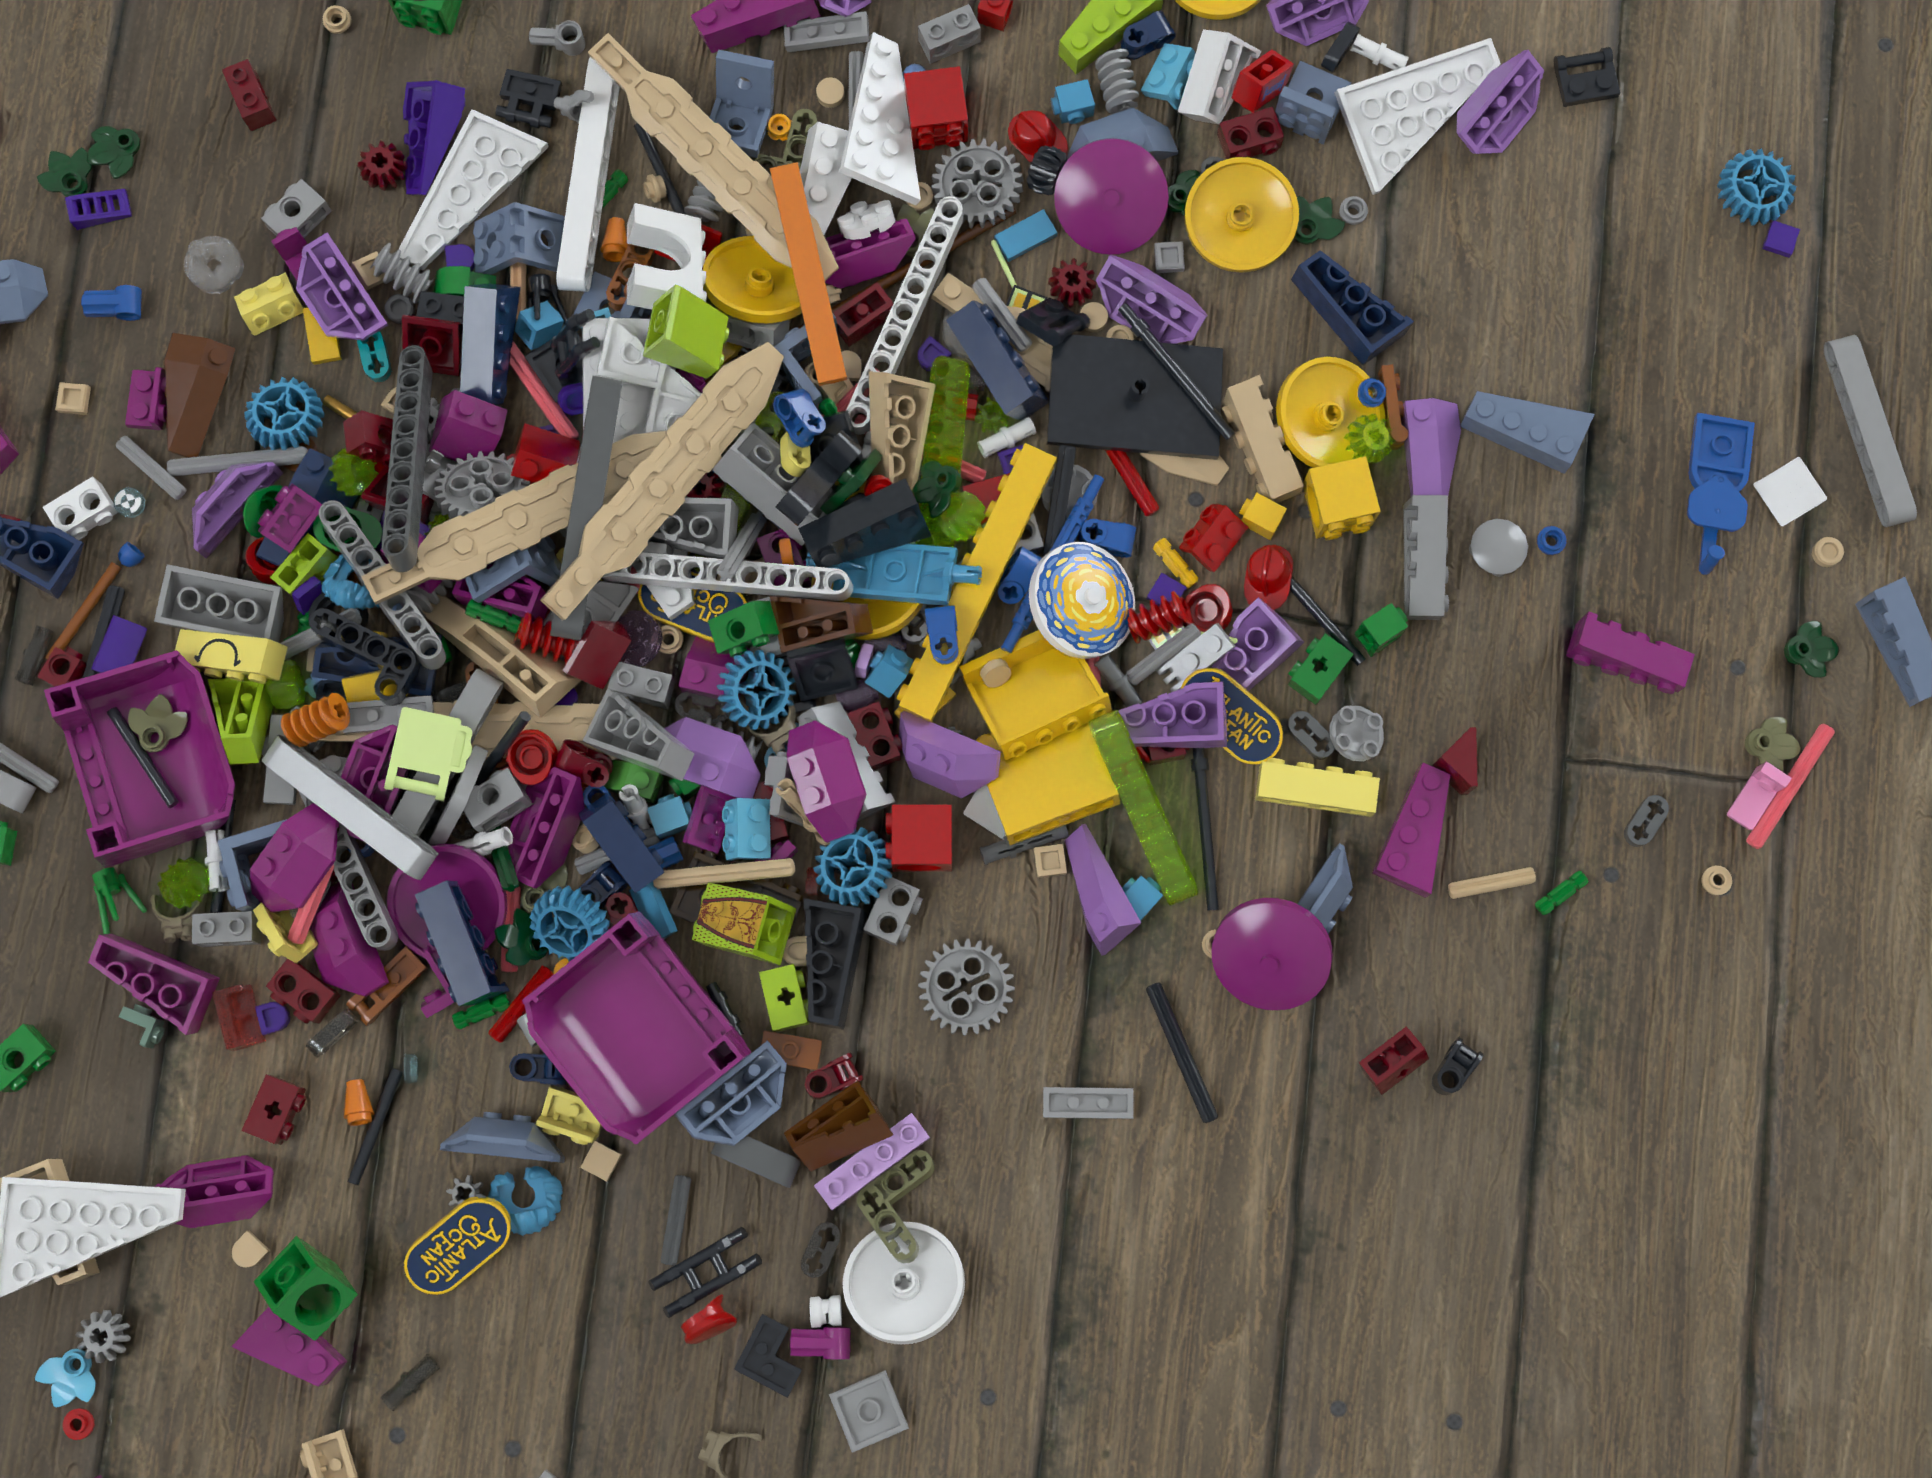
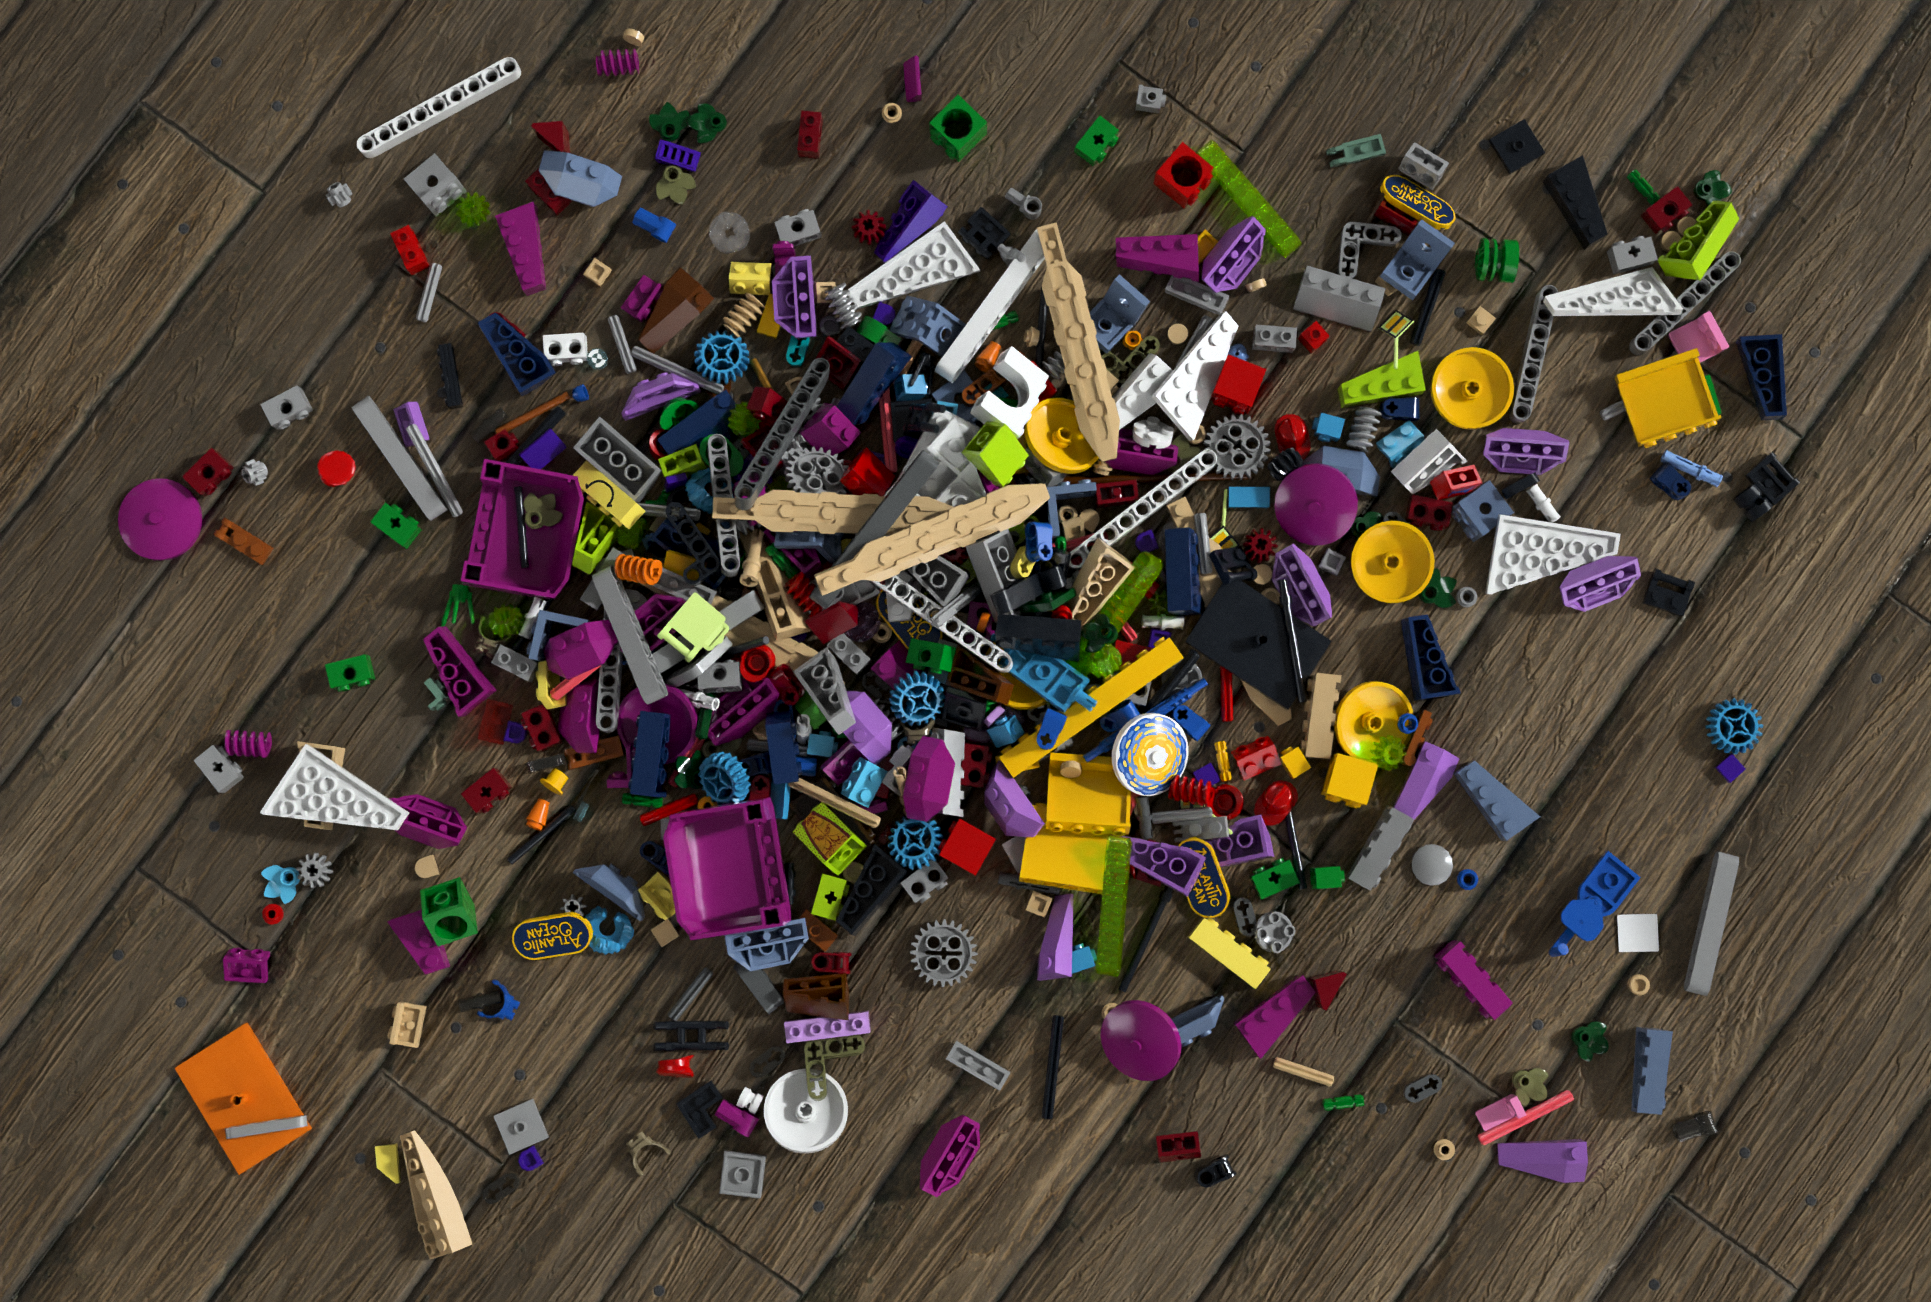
camera: 30 degrees right, 5 degrees up
(116, 246) = (676, 187): none -> olive plate
(282, 349) = (742, 314): none -> tan piece
(289, 517) = (689, 428): magenta bracket -> none
(356, 1049) = (555, 781): none -> yellow piece
(450, 1366) = (508, 1007): none -> blue helmet
(457, 637) = (751, 564): none -> tan pin
(808, 274) = (1094, 452): orange tile -> none
(1116, 1234) = (949, 1155): none -> magenta wedge
(1852, 819) = (1552, 1159): none -> medium lavender wedge

